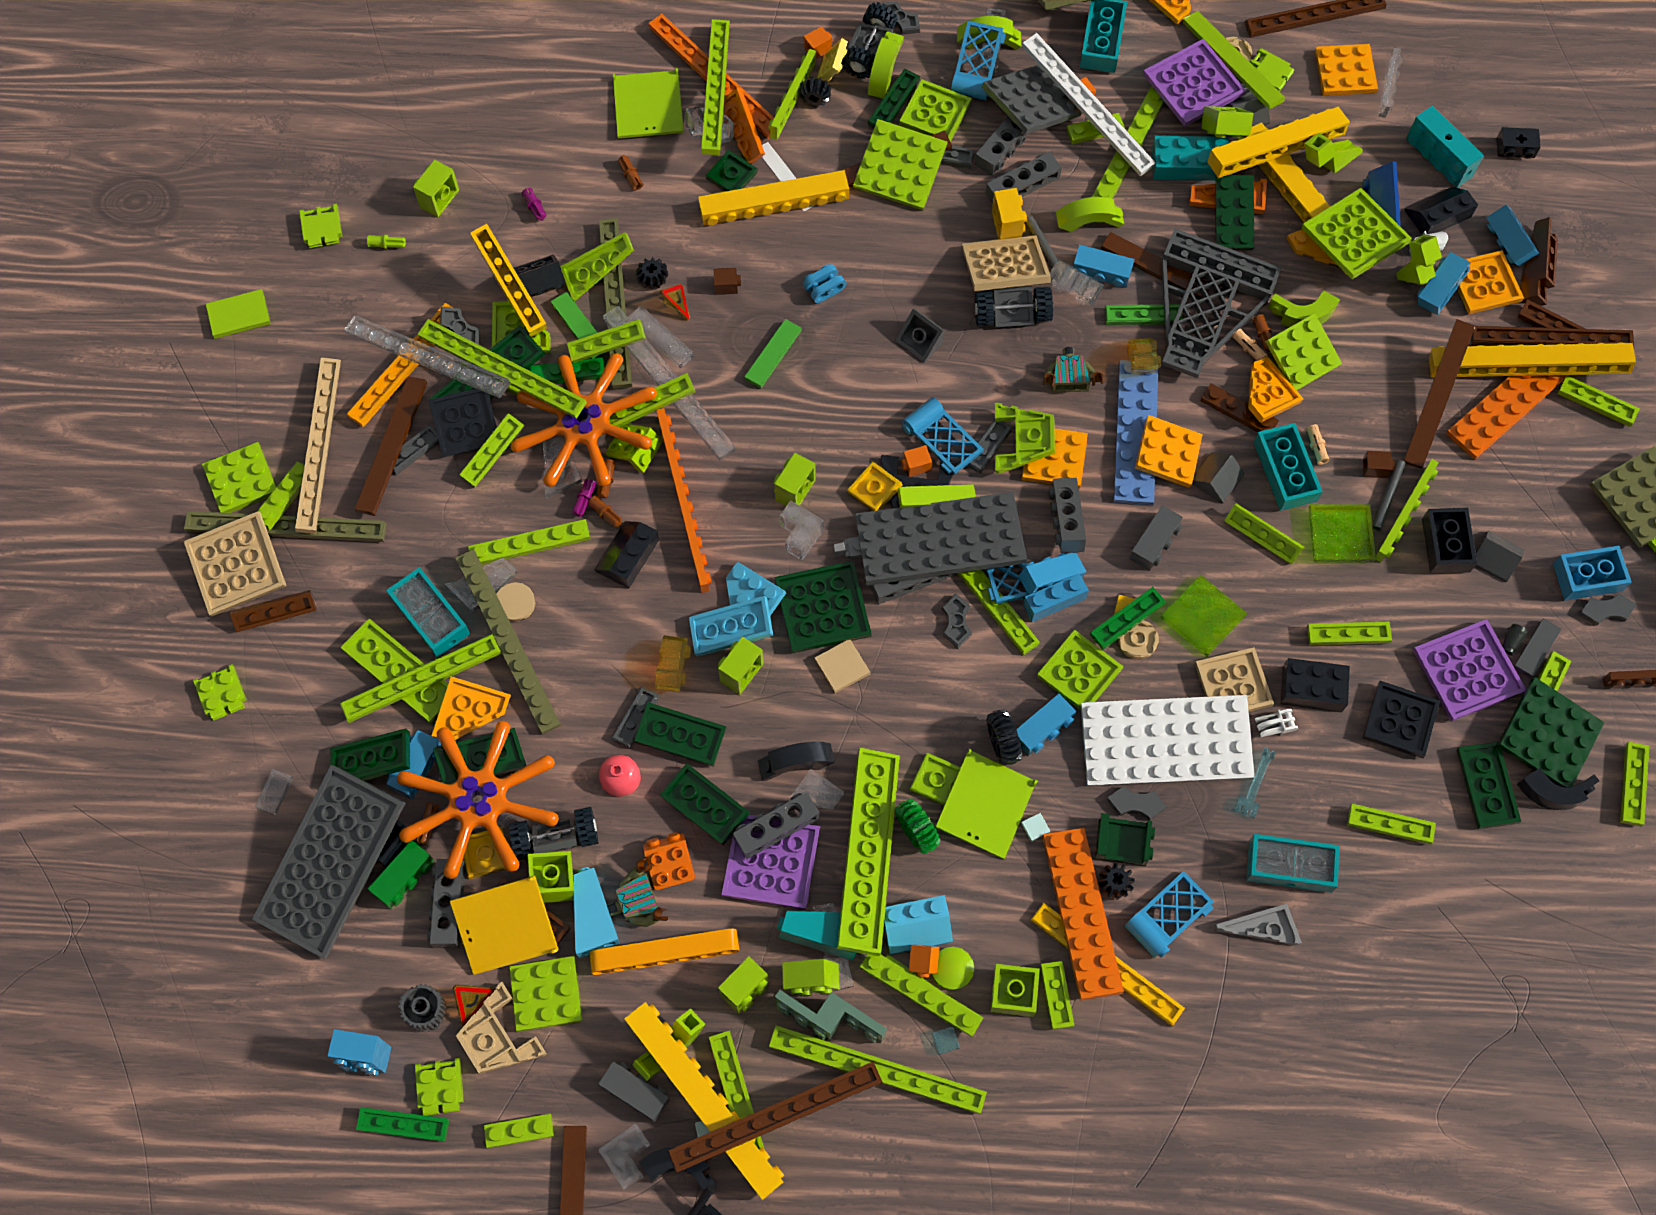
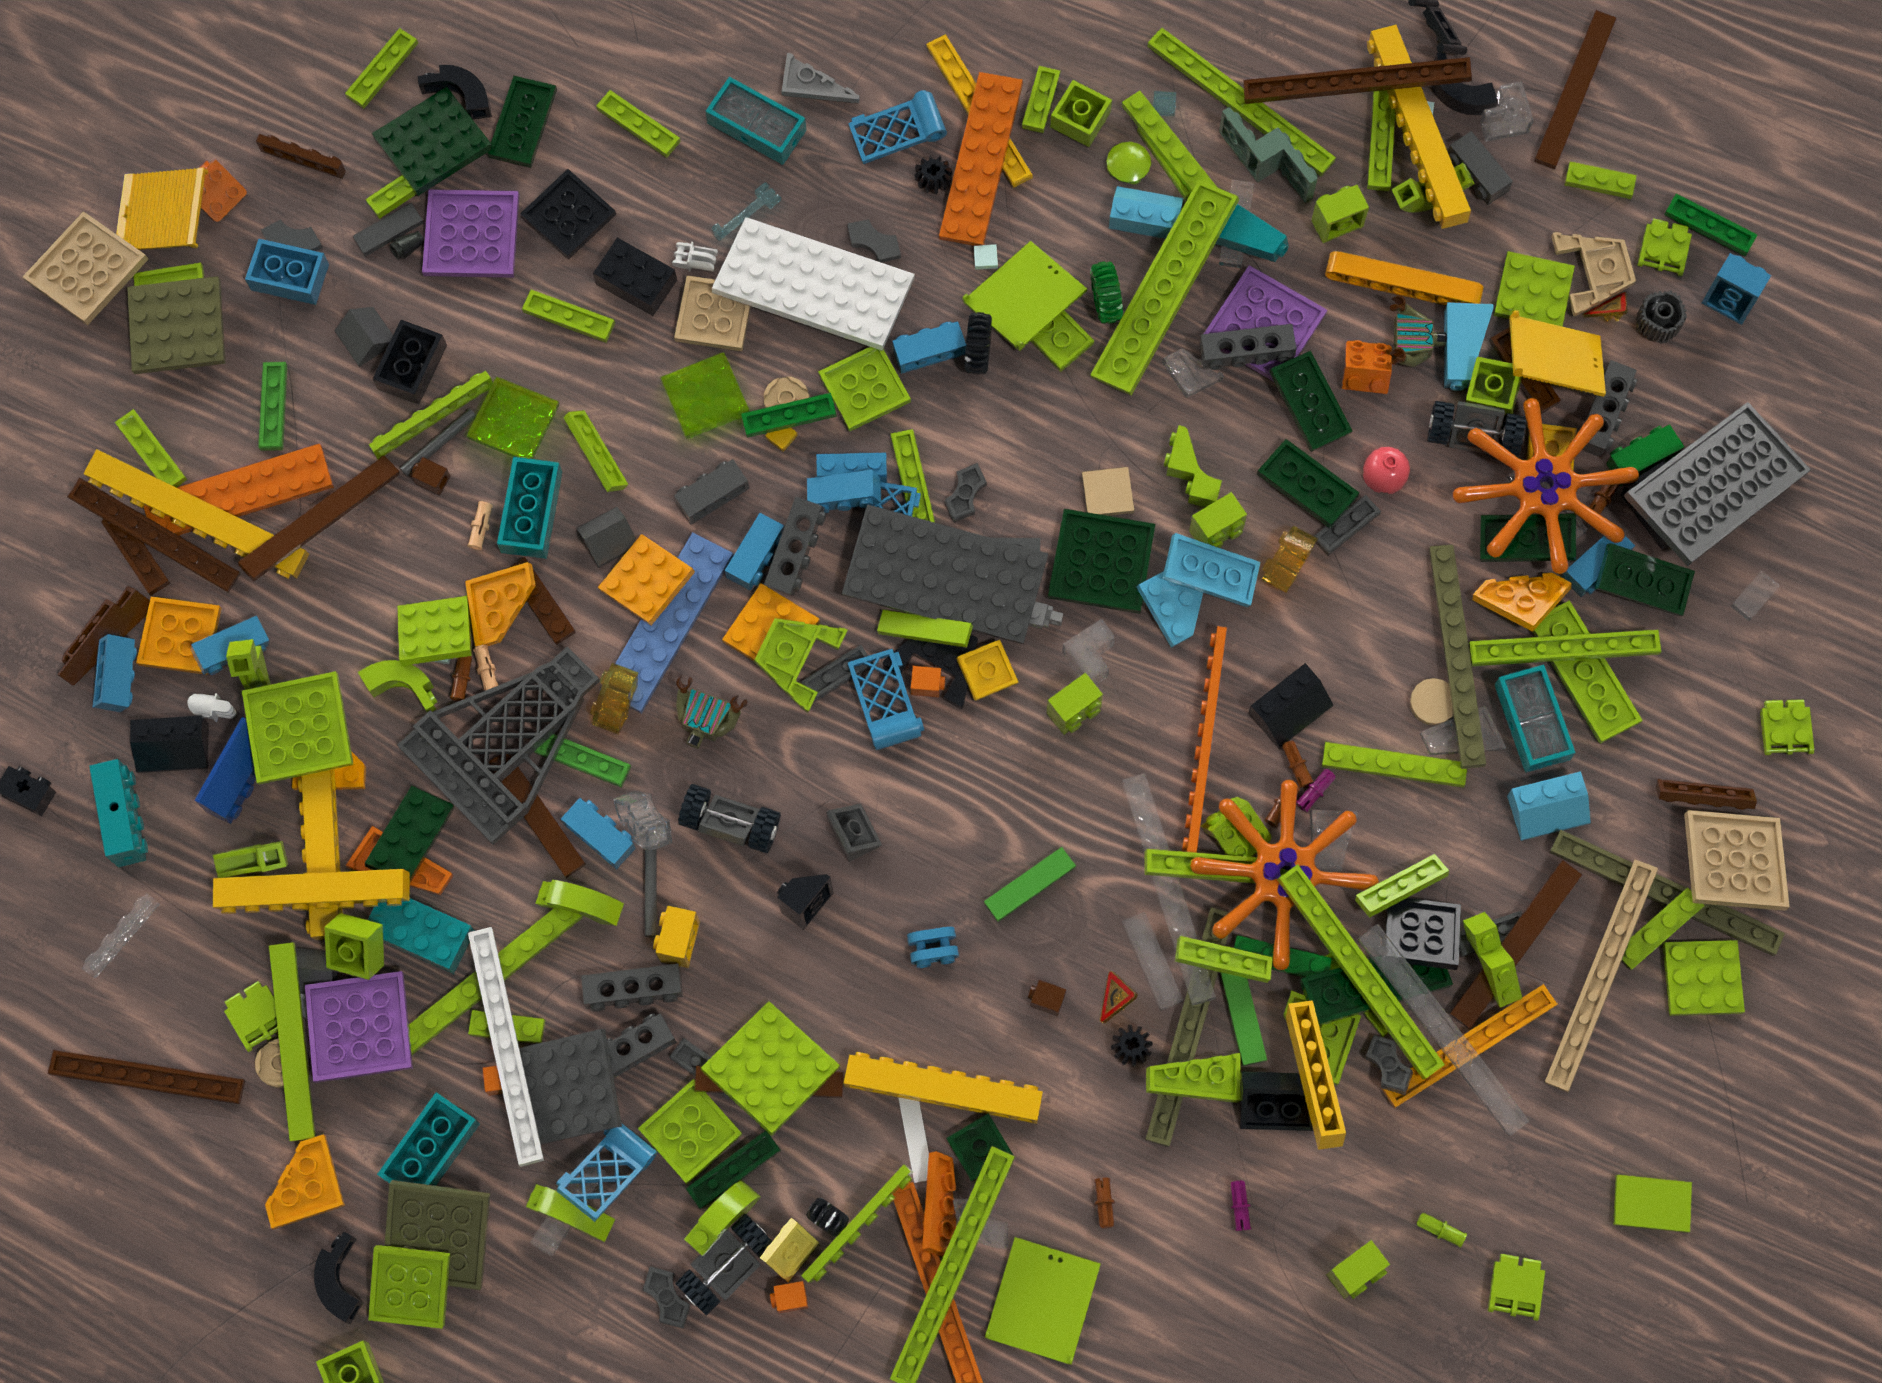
camera: 155 degrees left, 5 degrees up
(397, 557) = (1550, 805): none -> medium azure slope
(403, 419) = (1496, 962): none -> lime arch
(789, 709) = (1183, 464): none -> lime arch
(796, 756) = (1201, 404): black arch -> none
(811, 977) = (1272, 192): lime brick -> none
(924, 959) = (1154, 172): orange brick -> none
(931, 265) = (804, 898): none -> black slope
(1006, 263) = (713, 872): tan plate -> none
(1097, 505) = (755, 552): none -> dark azure brick
(1124, 841) = (905, 210): dark green panel -> none
(1346, 69) = (159, 981): light orange plate -> none
(1531, 473) = (273, 406): none -> bright green tile

